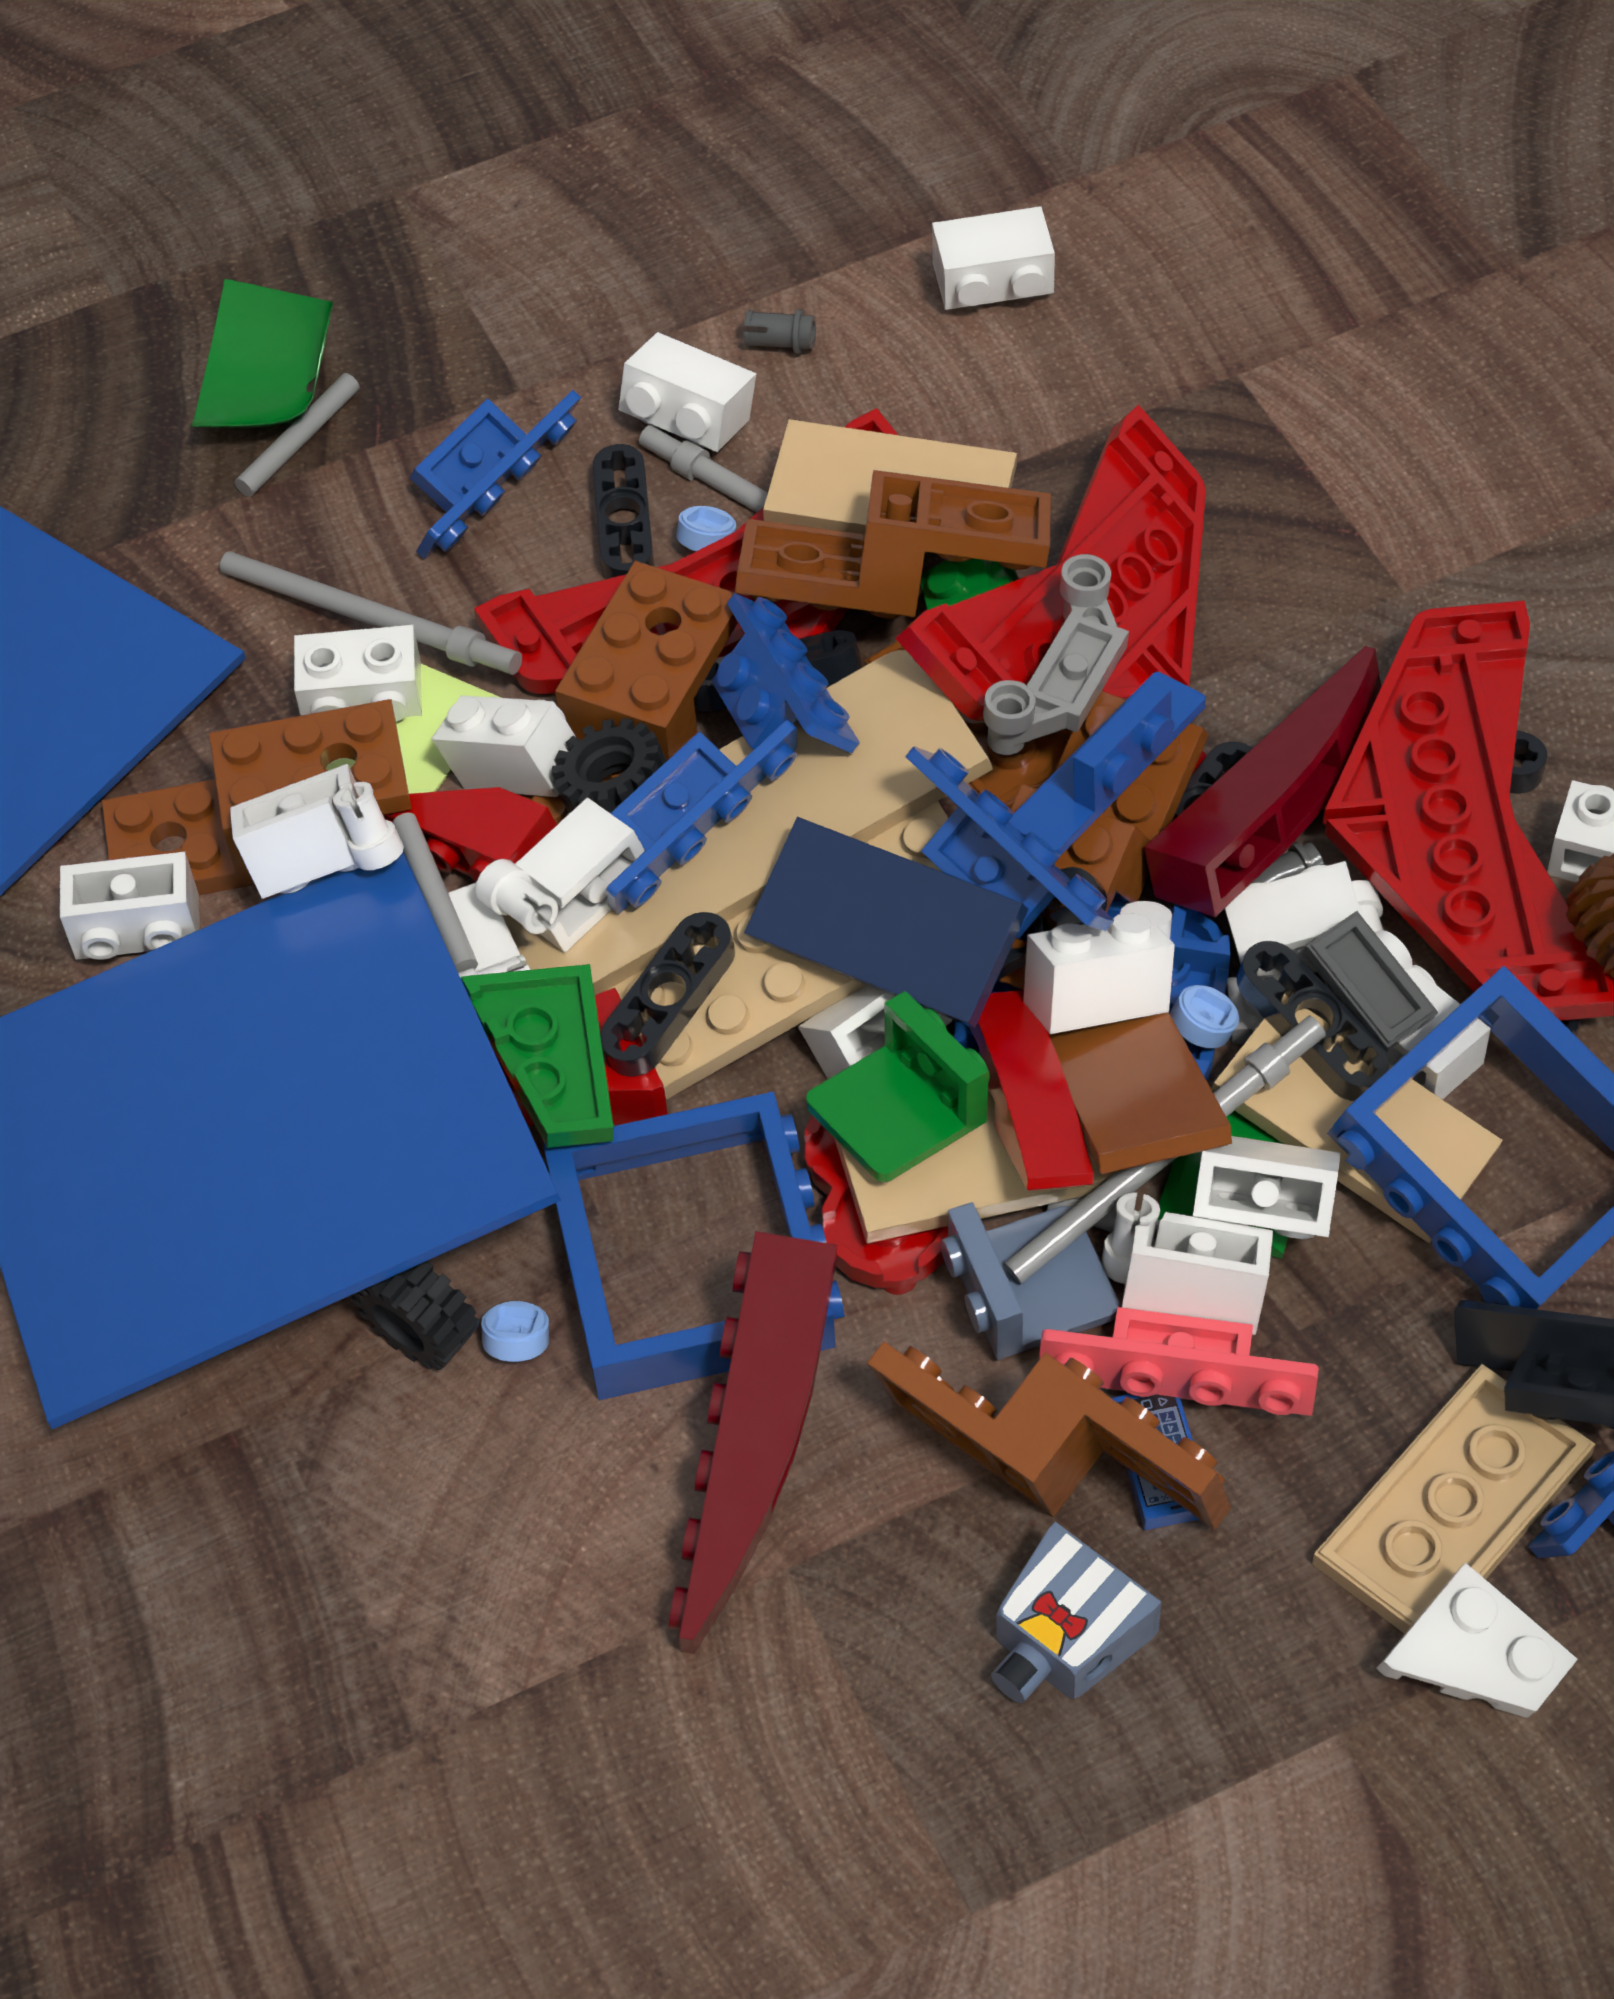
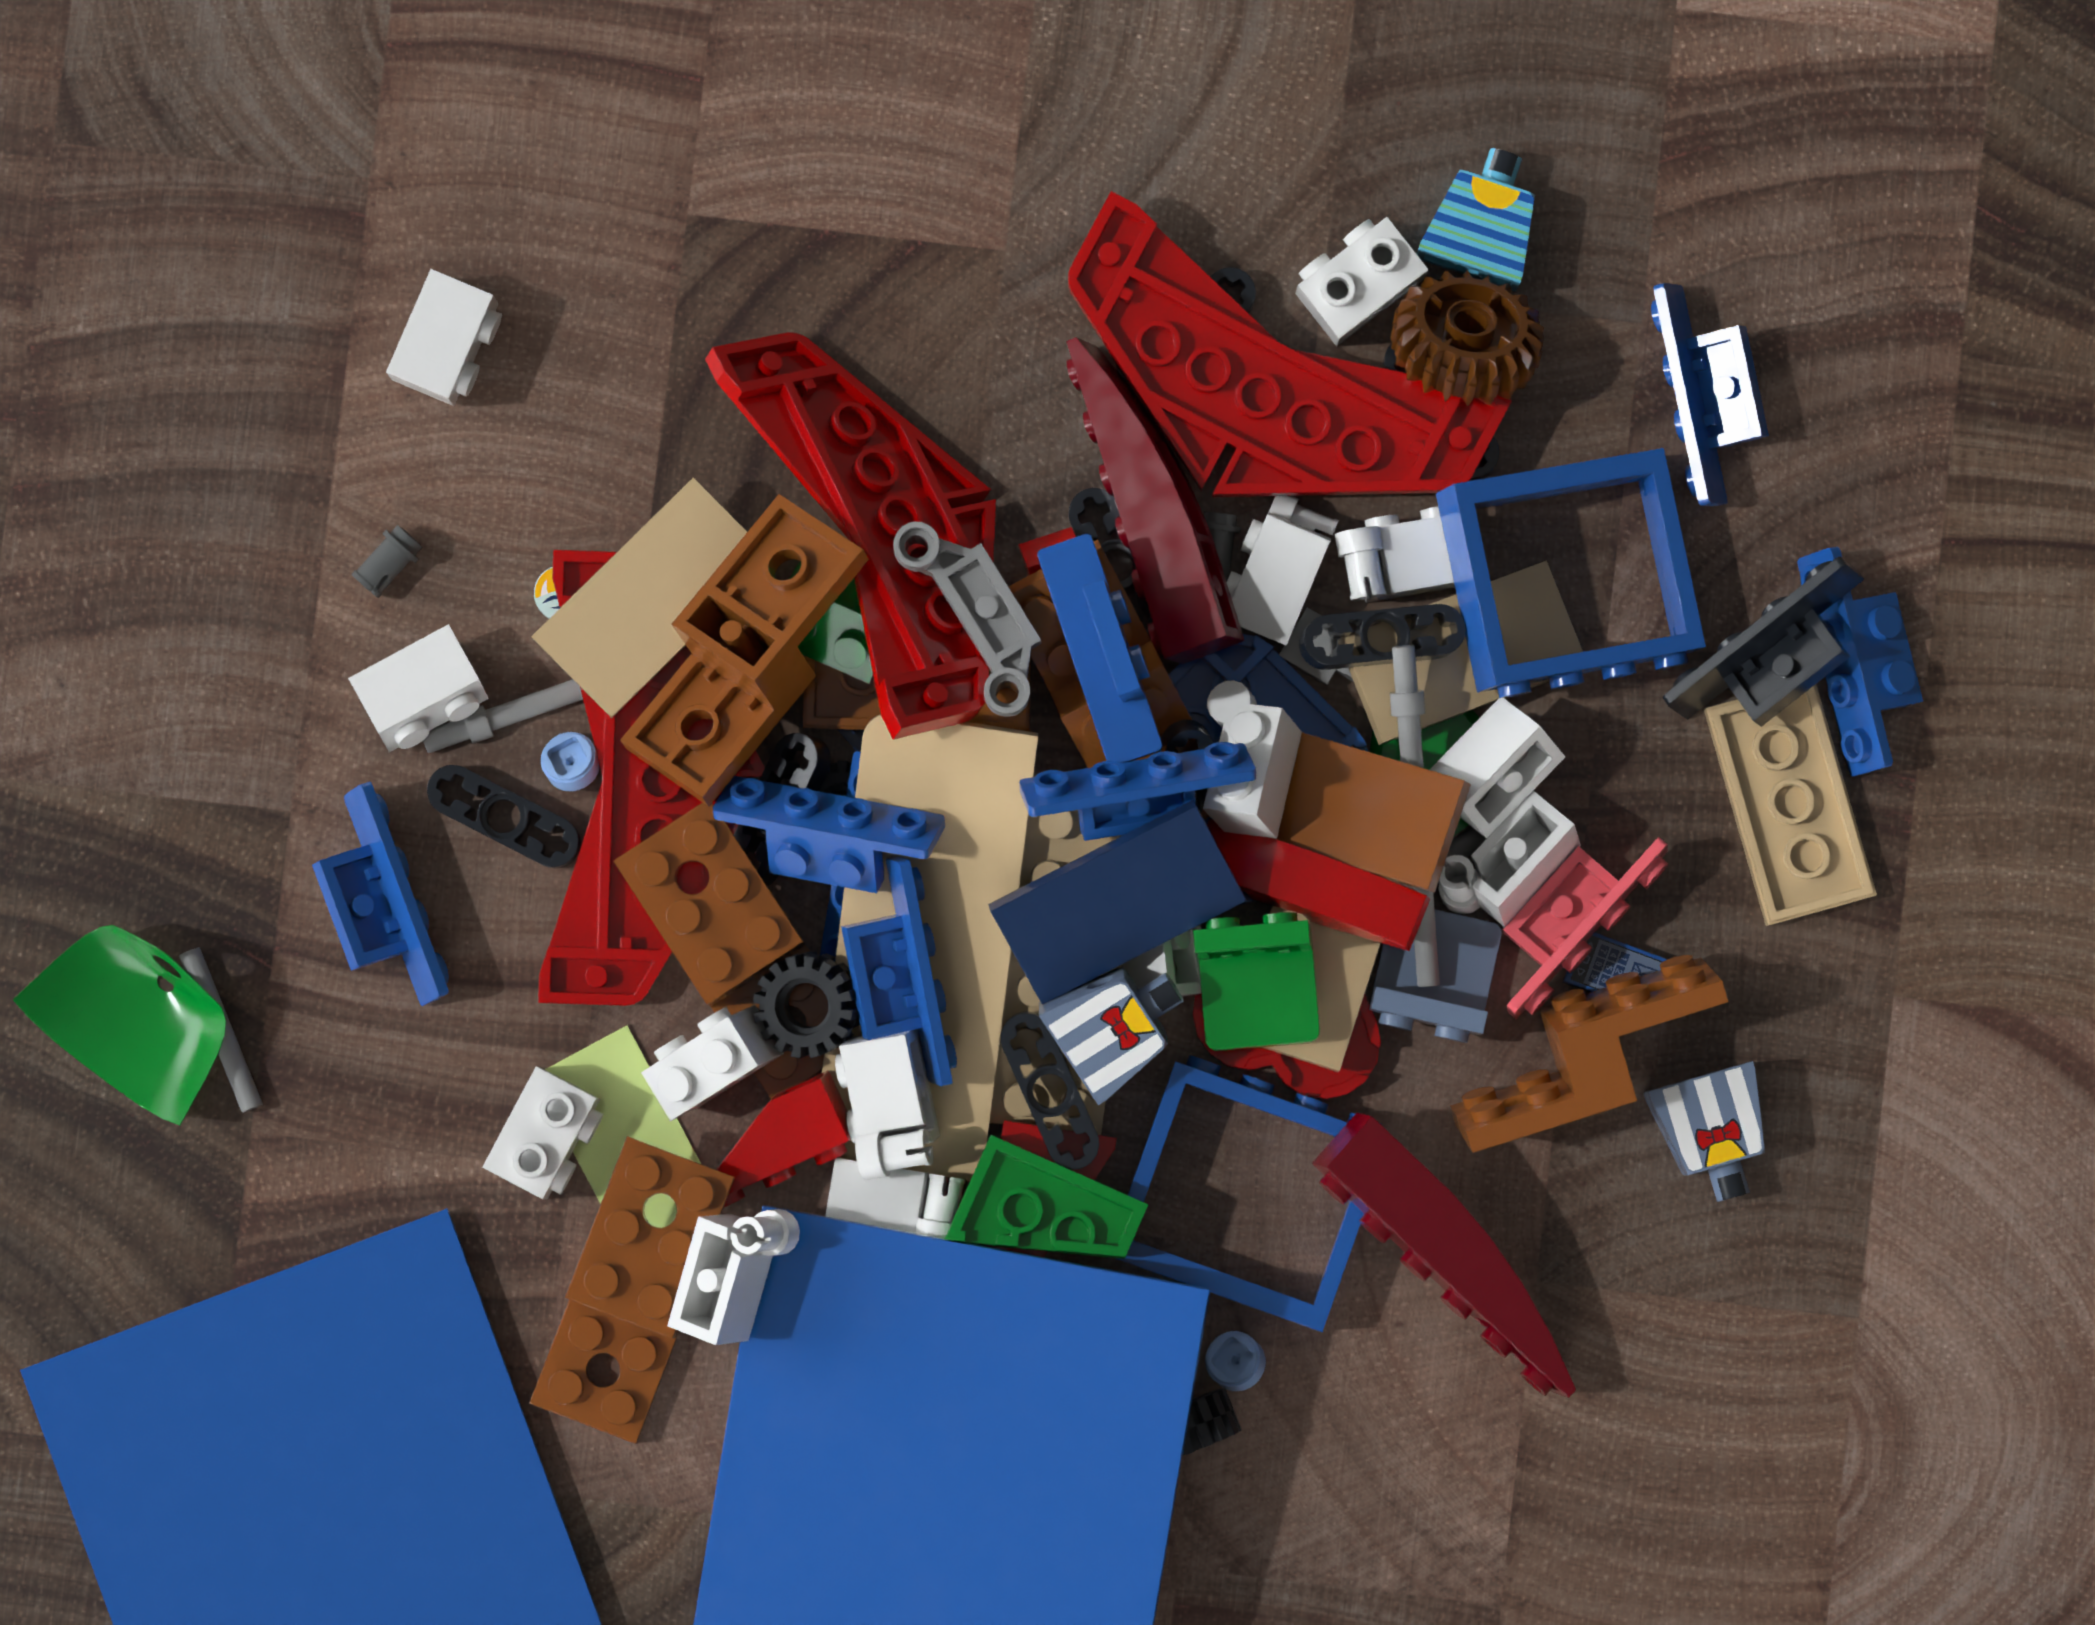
camera: 60 degrees left, 30 degrees up
(128, 904) = (669, 1441): white brick -> none
(434, 891) = (831, 1206): light grey bar -> none
(460, 643) = (572, 1034): light grey bar -> none
(760, 997) = (1110, 1027): none -> torso
(1205, 1016) = (1313, 702): light blue tile -> none
(1370, 981) = (1386, 577): dark grey tile -> none
(1480, 1648) = (1906, 870): white wing -> none

